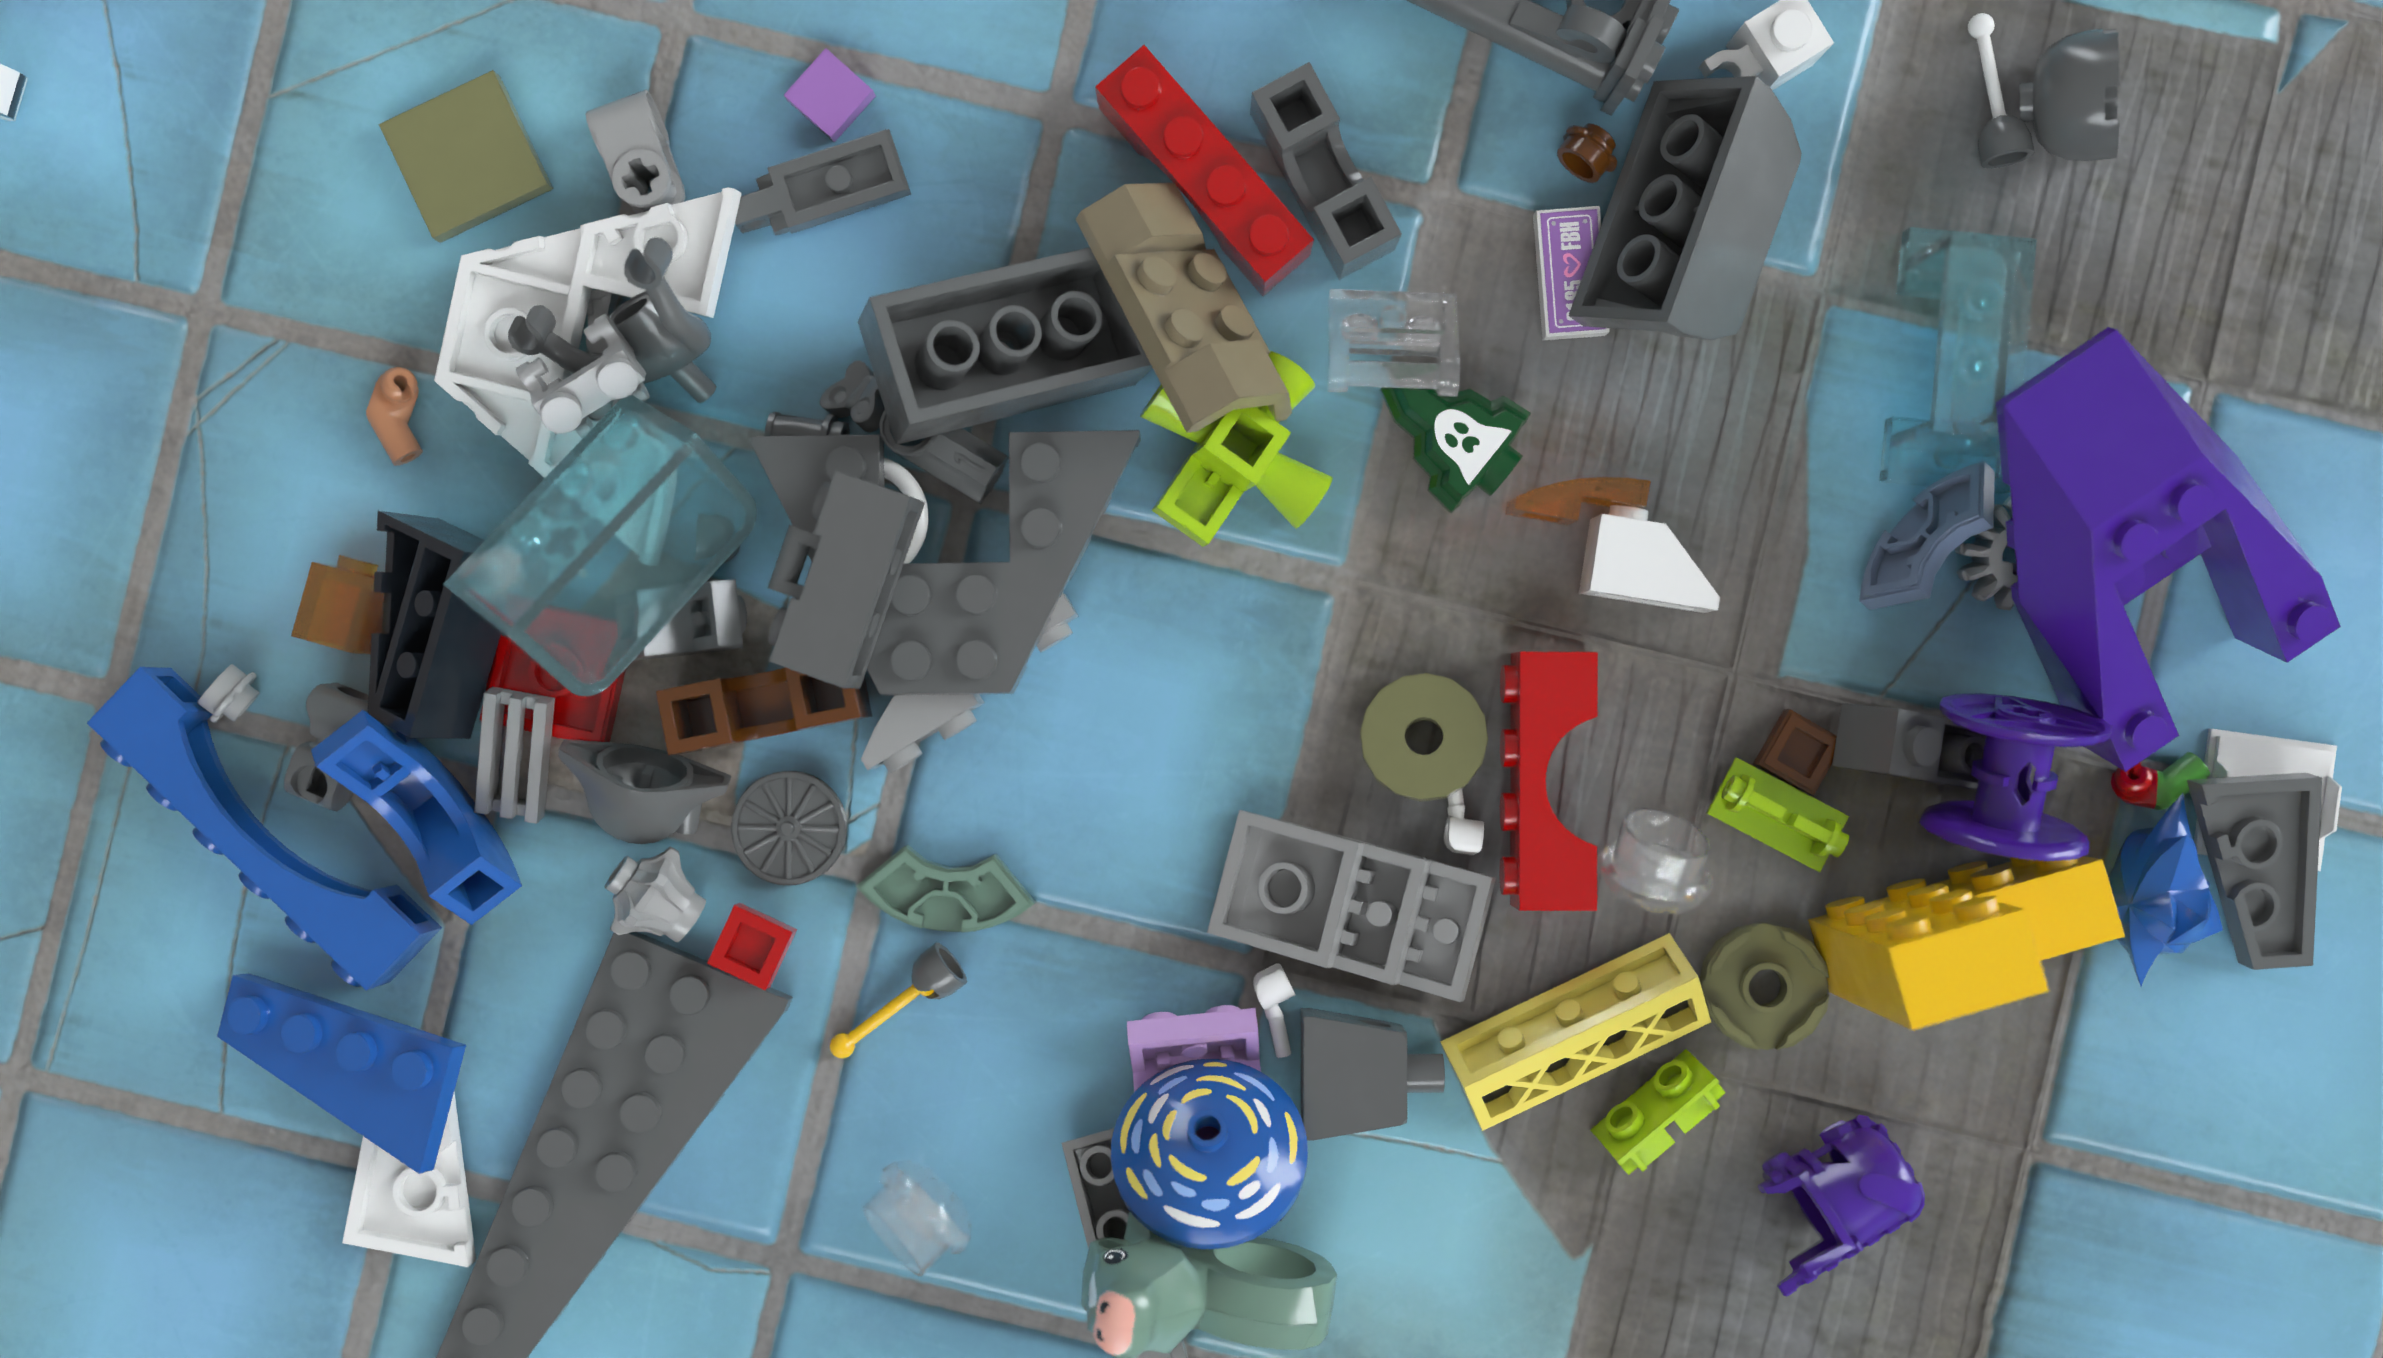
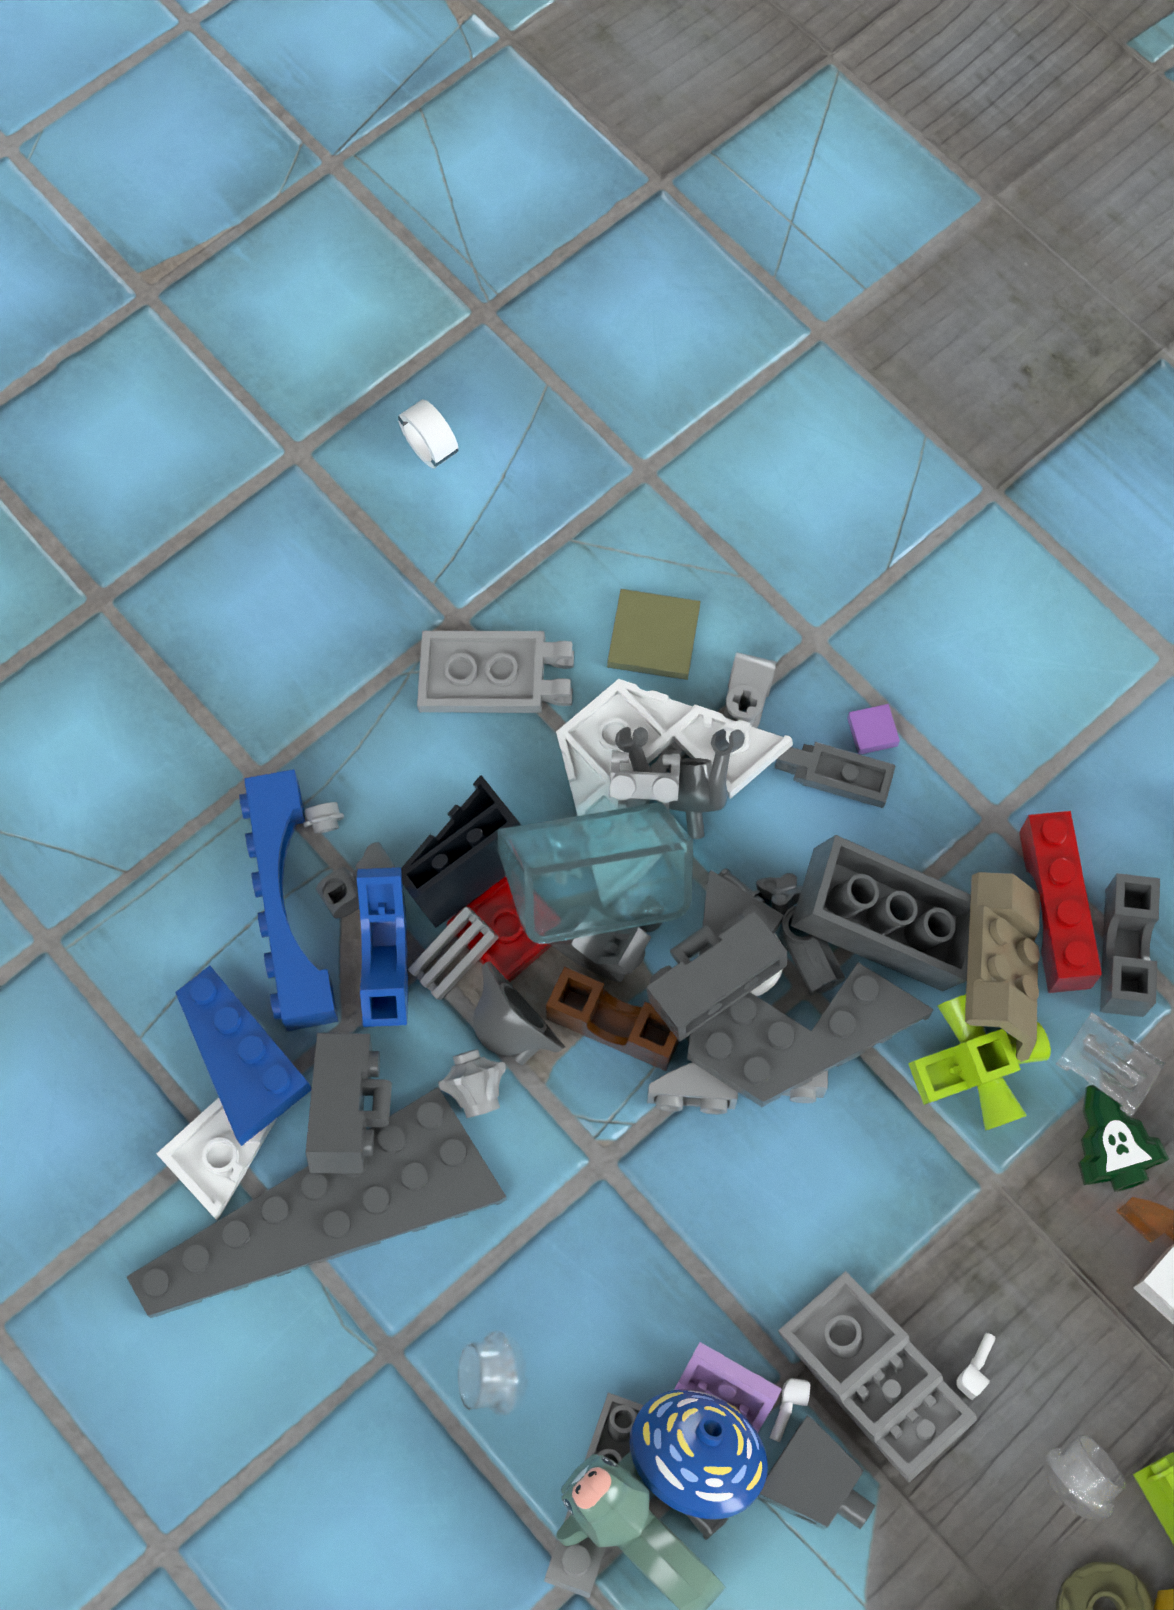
camera: 30 degrees right, 20 degrees down
(295, 354) = (491, 672): none -> light grey tile
(340, 606) = (420, 812): clear orange brick -> none
(391, 411) = (519, 732): nougat arm -> none
(507, 1037) = (336, 1115): none -> dark grey piece
(752, 946) = (510, 1148): red tile -> none
(789, 827) = (575, 1100): dark grey wheel -> none
(933, 976) = (598, 1242): hinge -> none
(946, 896) = (636, 1202): sand green tile -> none
(1424, 699) = (1003, 1286): olive tile -> none
(1546, 861) = (1016, 1432): red arch -> none
(1575, 1024) = (971, 1545): light yellow fence -> none

